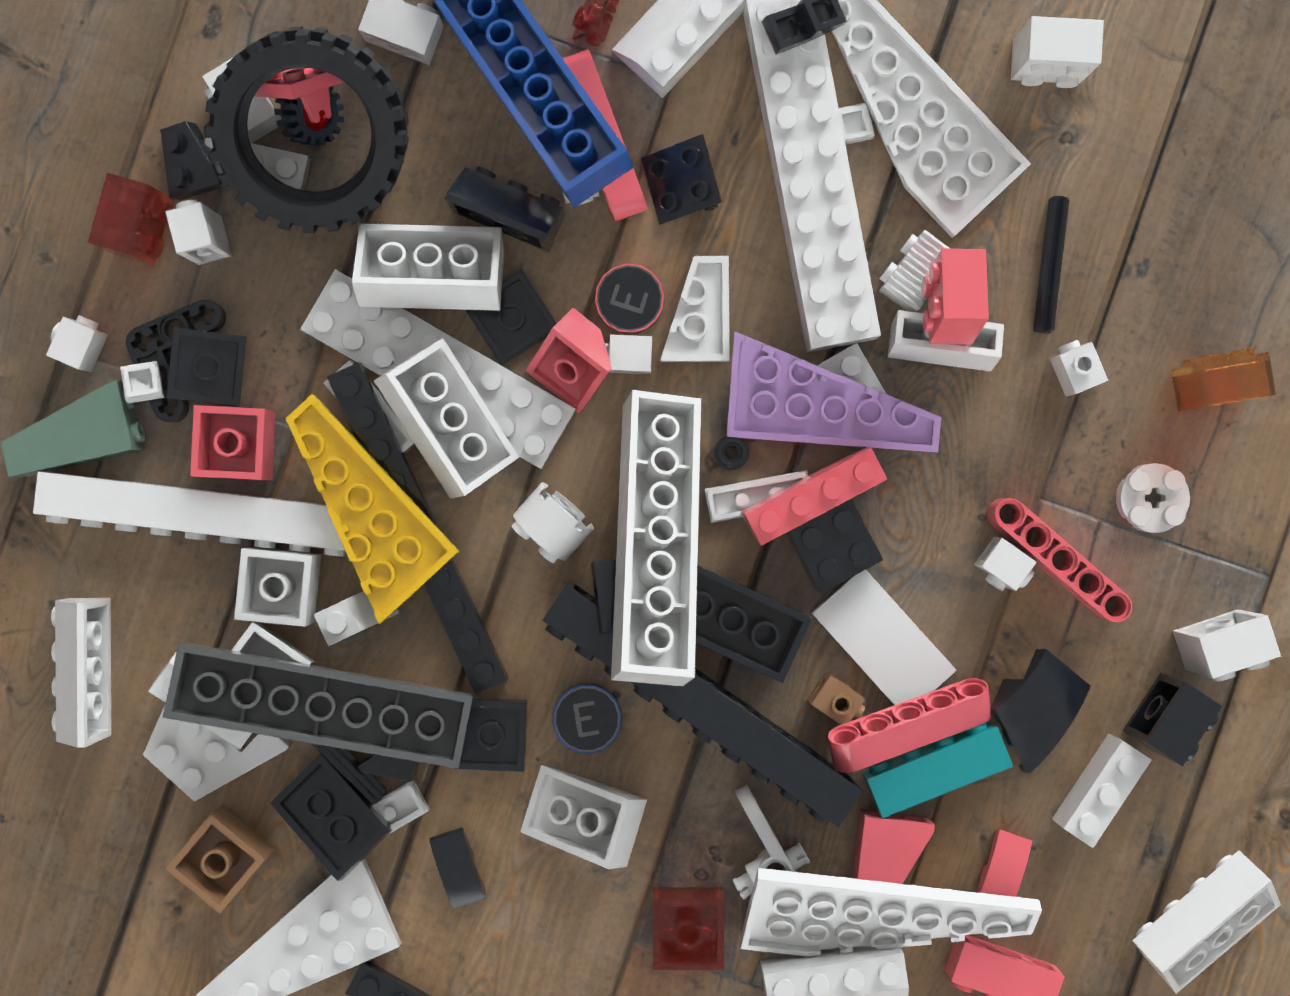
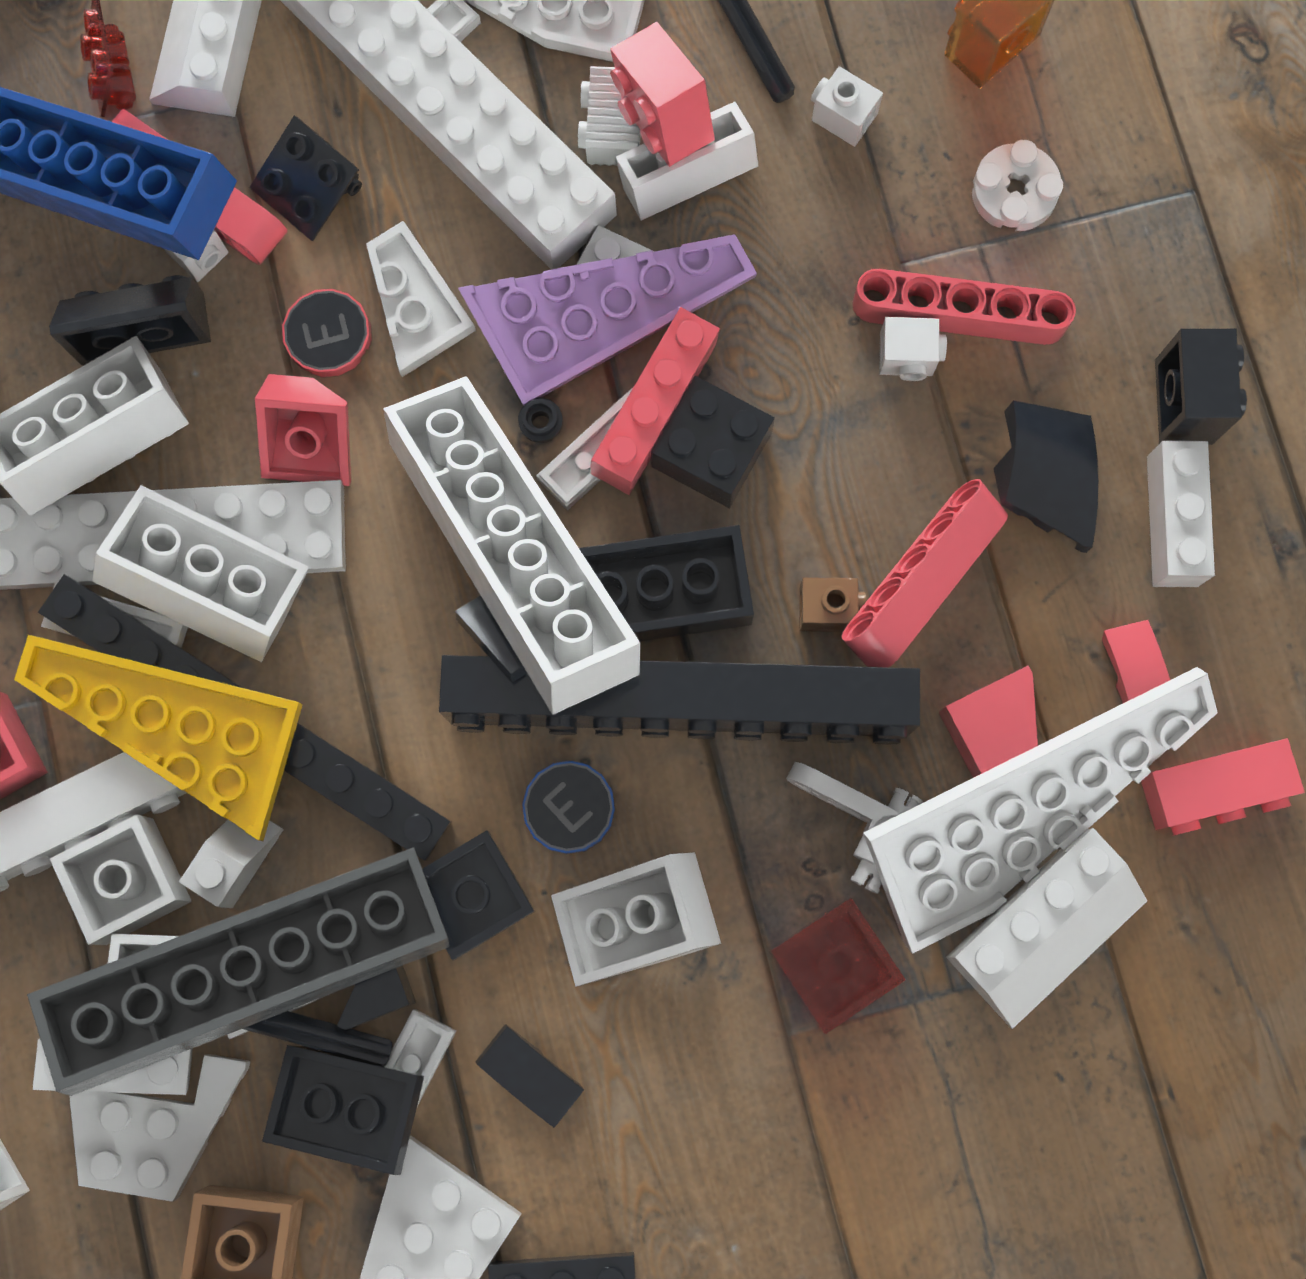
camera: 25 degrees left, 10 degrees down
(518, 324) = (217, 436): black tile -> none
(551, 523) = (389, 609): white brick -> none
(630, 354) = (363, 385): white brick -> none
(883, 639) = (835, 510): white tile -> none
(936, 769) = (989, 608): teal brick -> none
(1227, 644) = (1199, 274): white brick -> none

